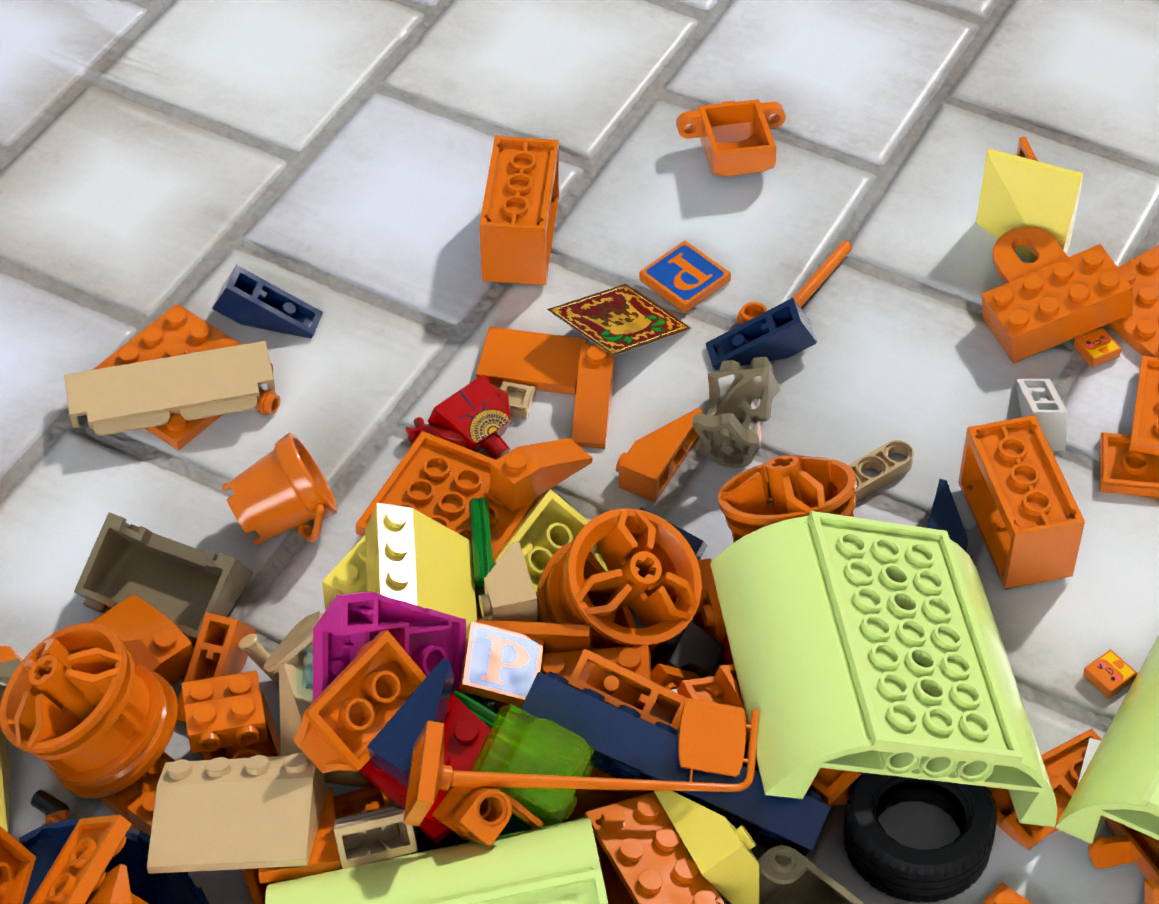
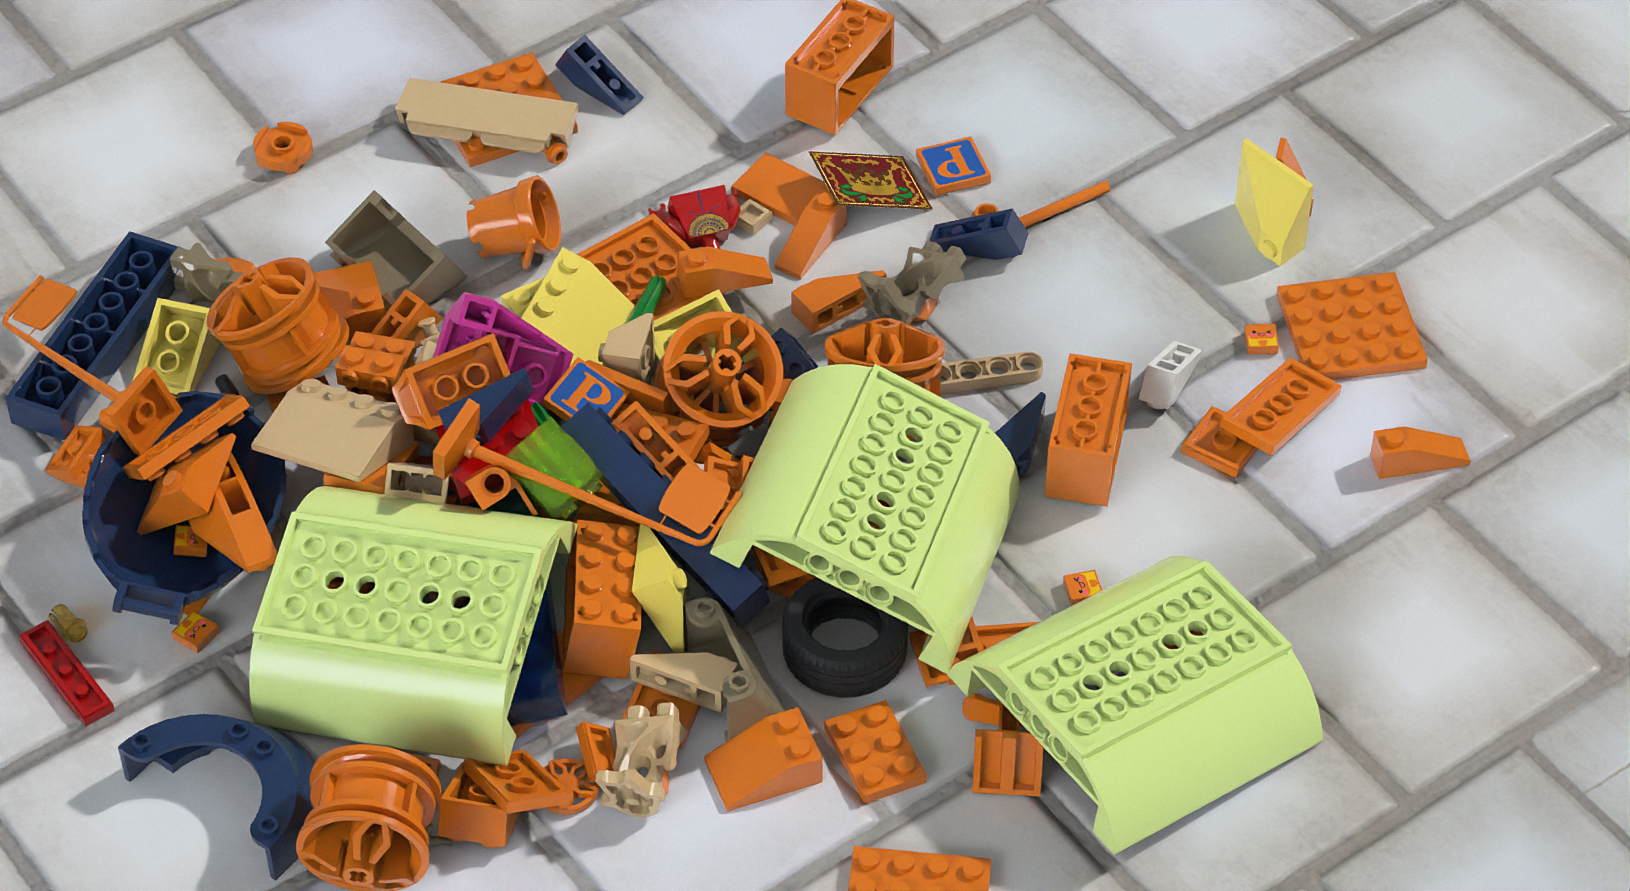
camera: 25 degrees right, 0 degrees up
(735, 135) = (1067, 62): orange piece -> none
(1053, 296) = (1242, 283): orange brick -> none

